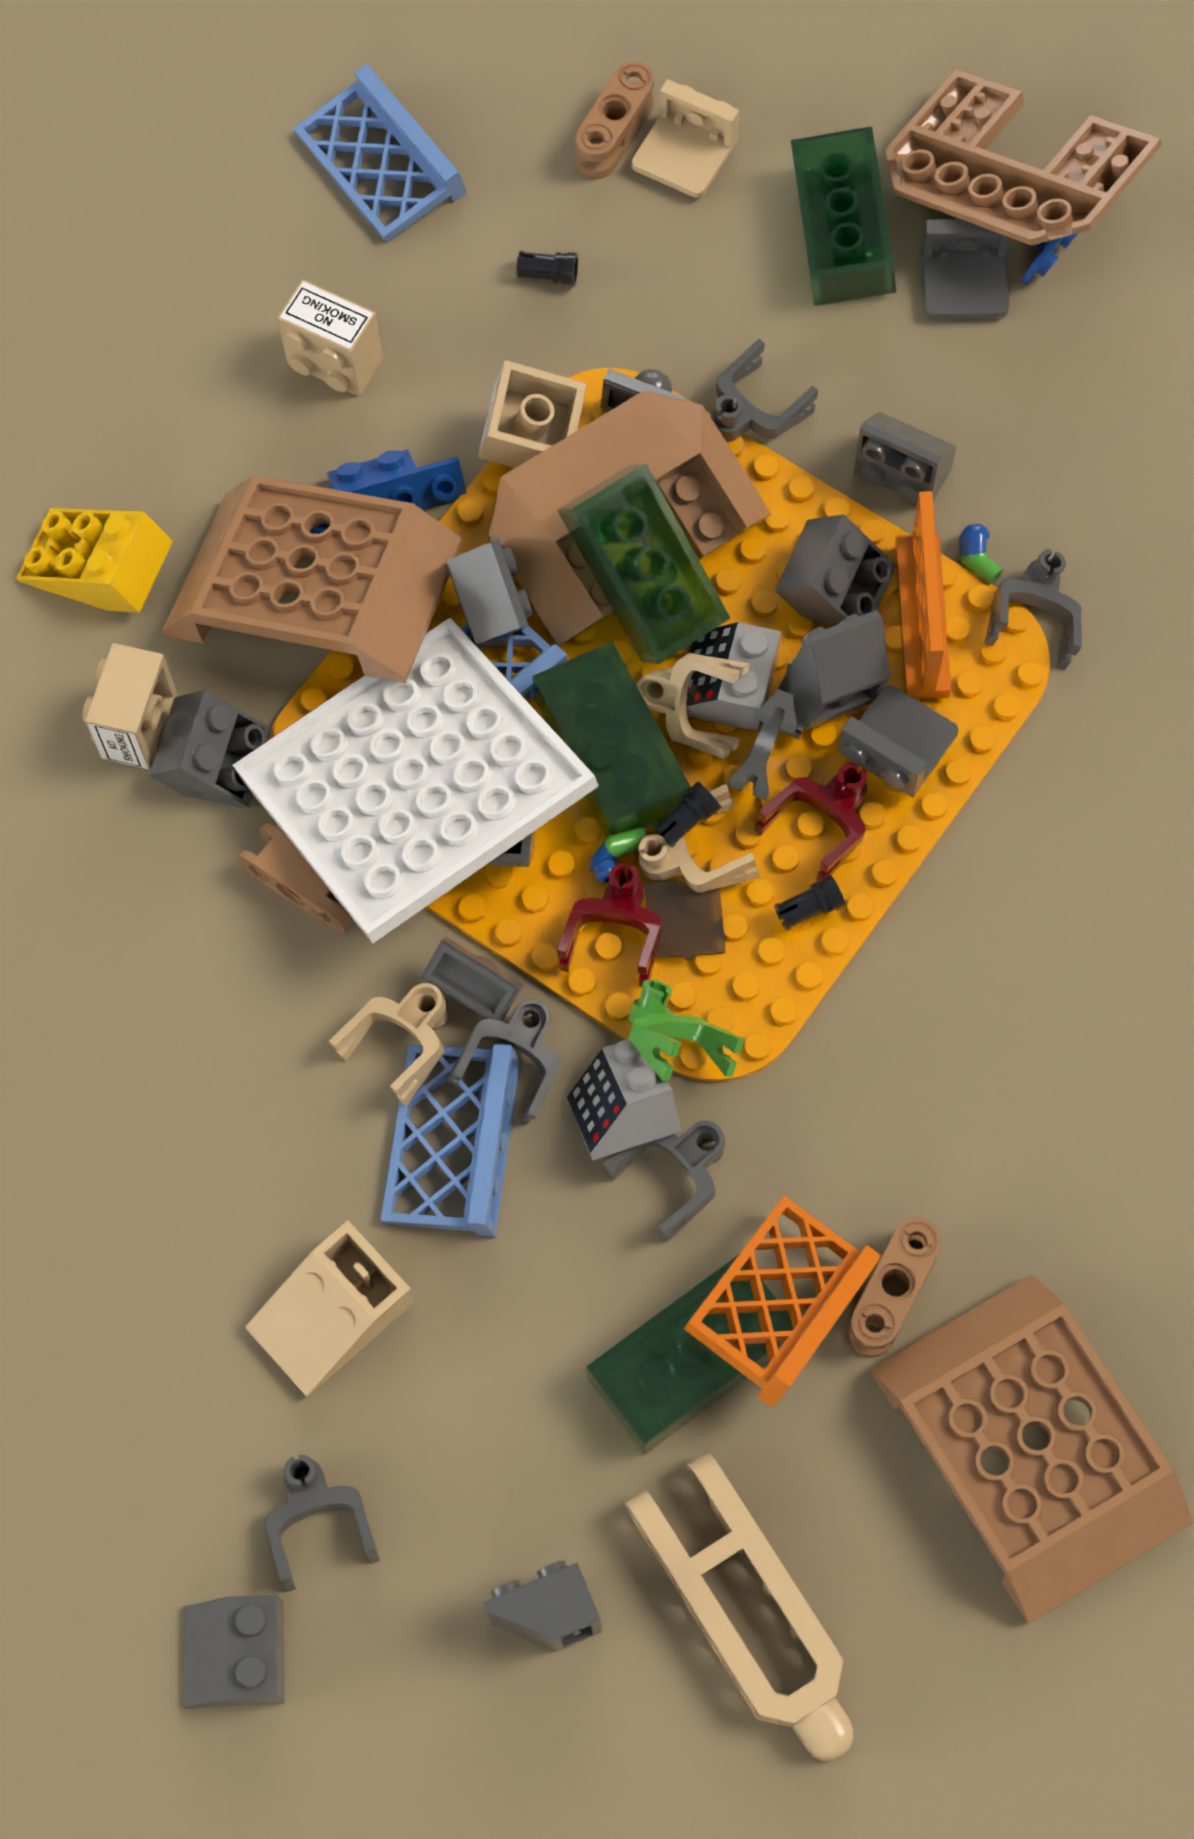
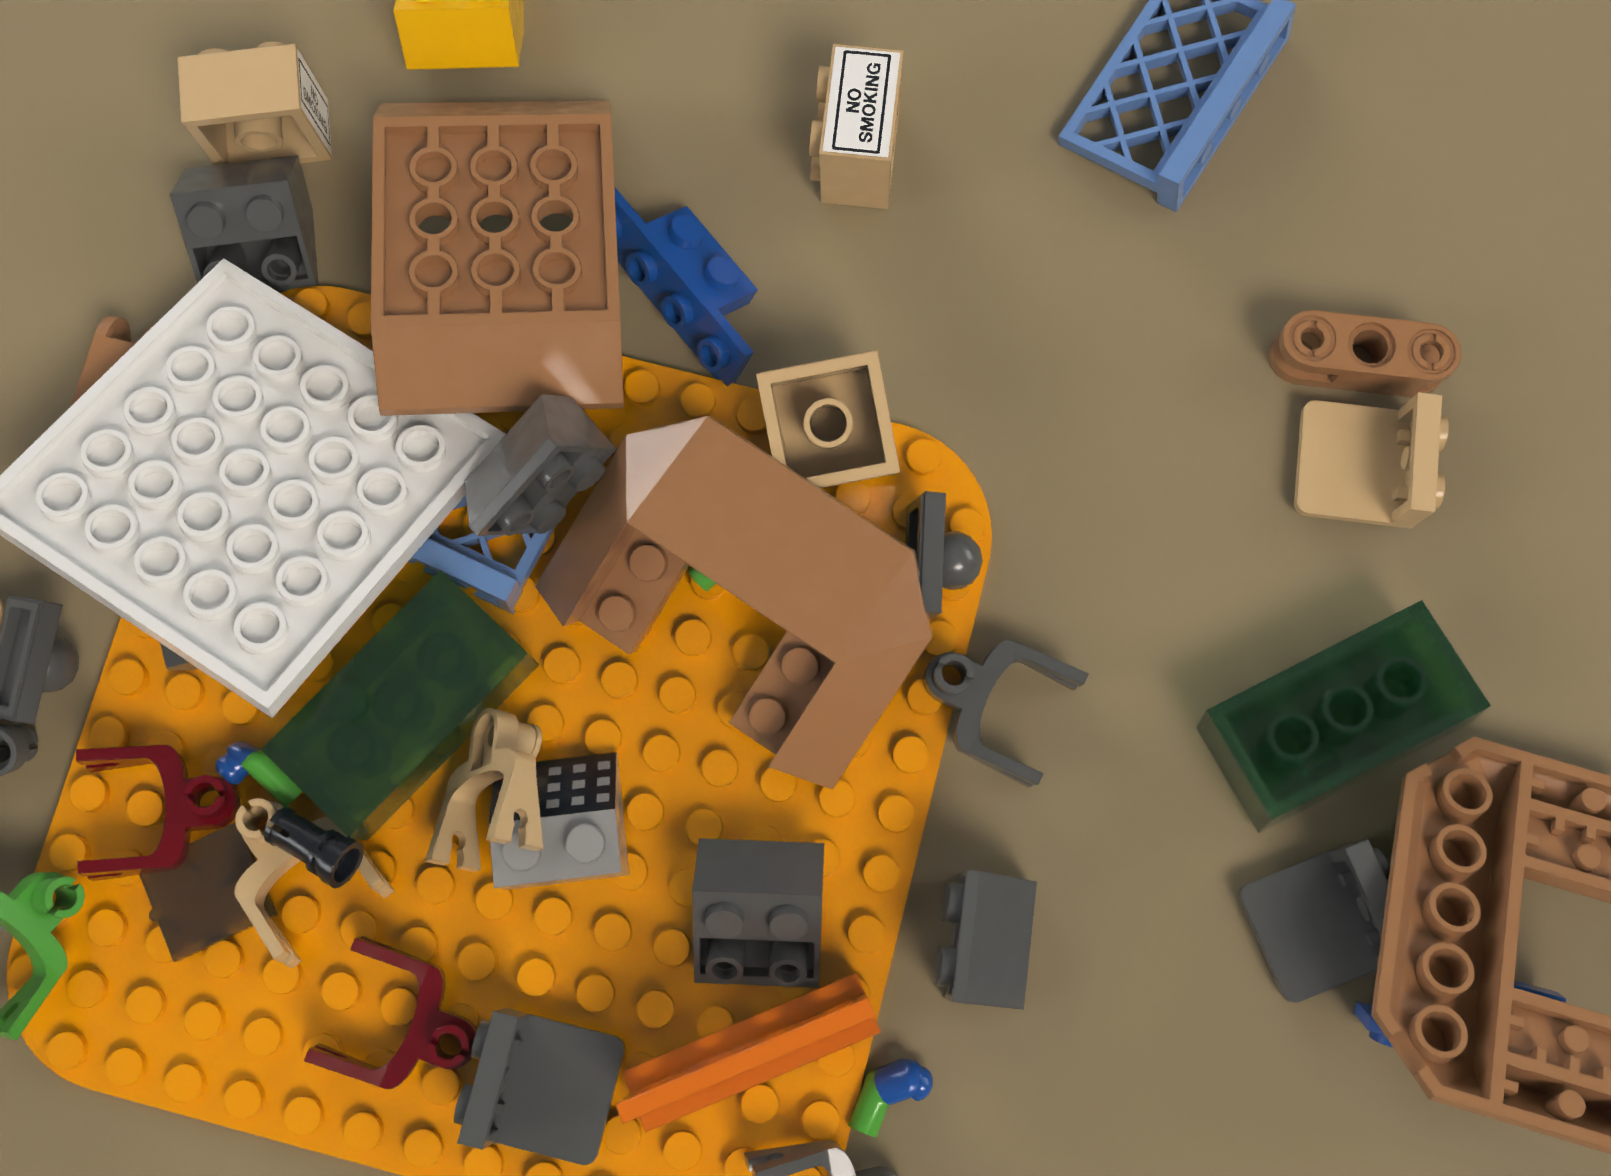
camera: 70 degrees right, 10 degrees up
(548, 266) = (1103, 369): black pin -> none
(644, 563) = (642, 649): clear green brick -> none
(776, 716) = (483, 913): dark grey piece -> none
(820, 898) = (277, 1062): black pin -> none
(838, 669) = (589, 974): dark grey slope -> none

